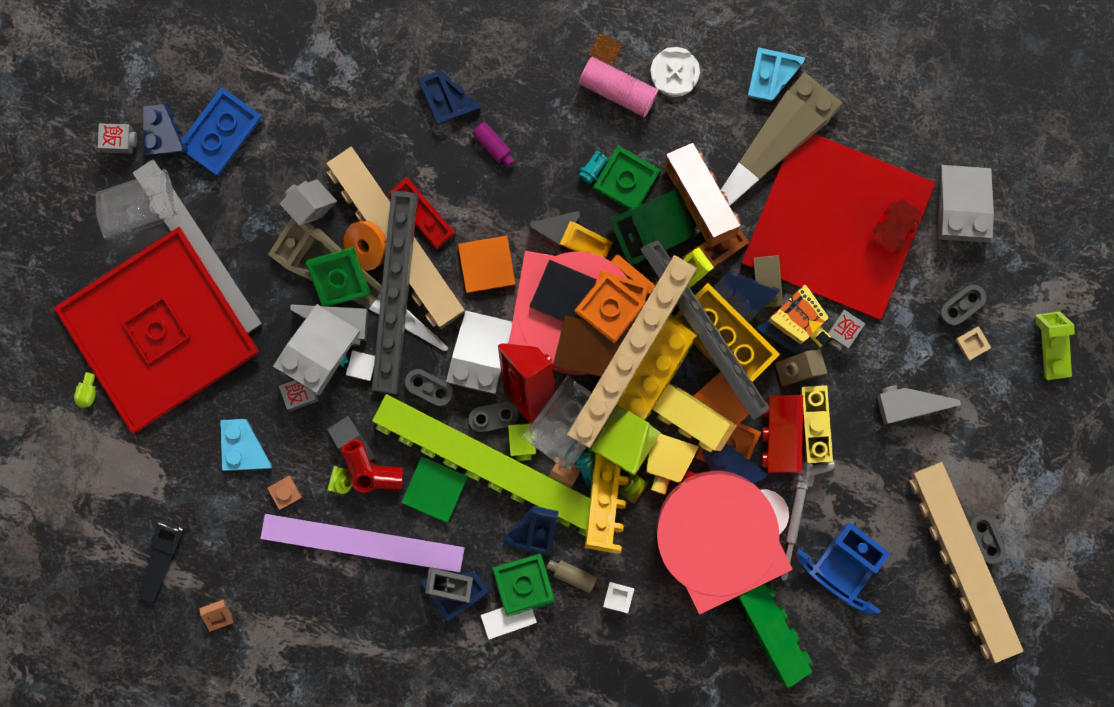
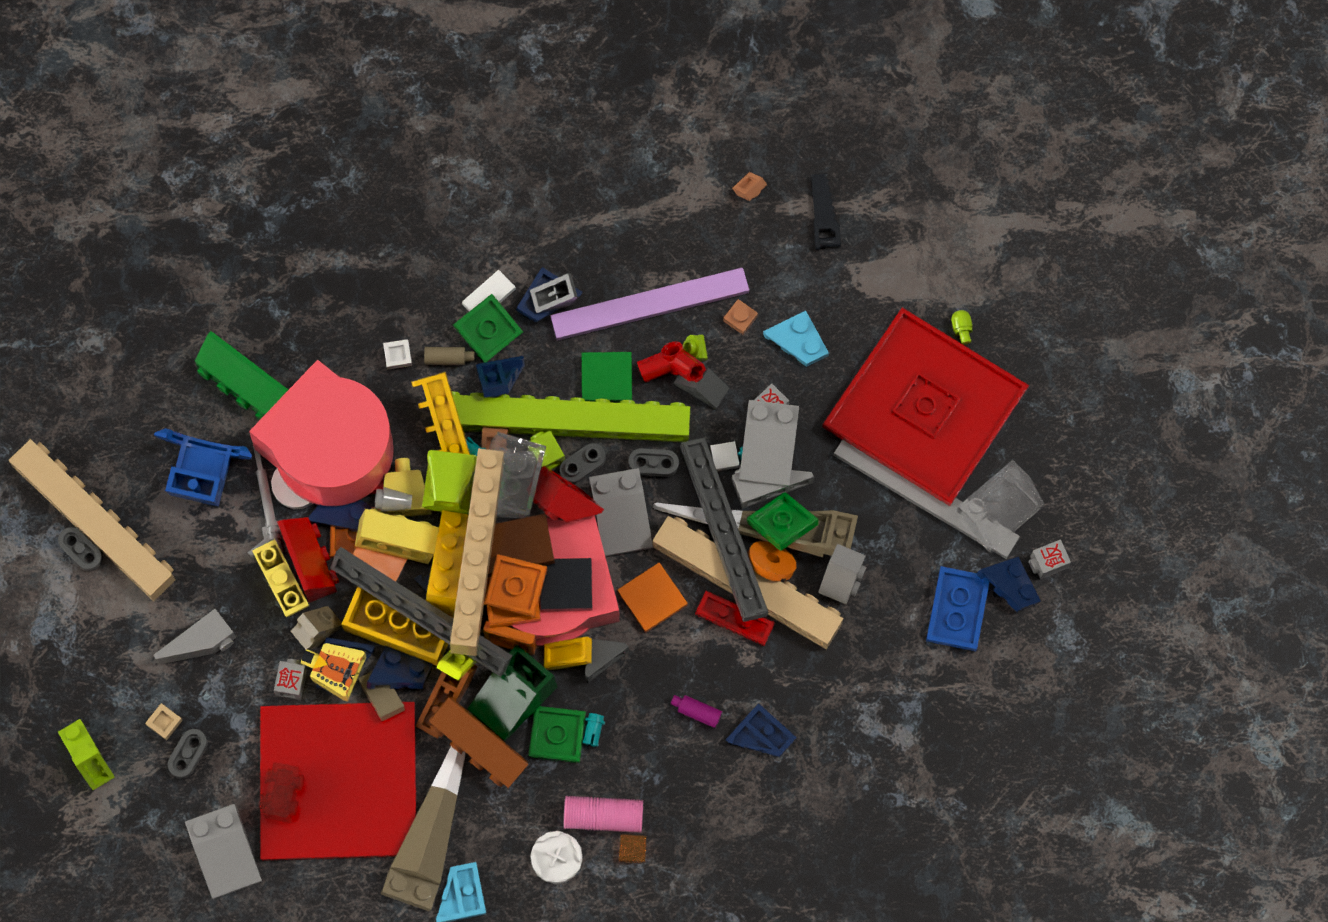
camera: 155 degrees right, 10 degrees down
(634, 488) = (421, 458): lime plate -> none
(685, 450) = (392, 500): none -> light grey cone

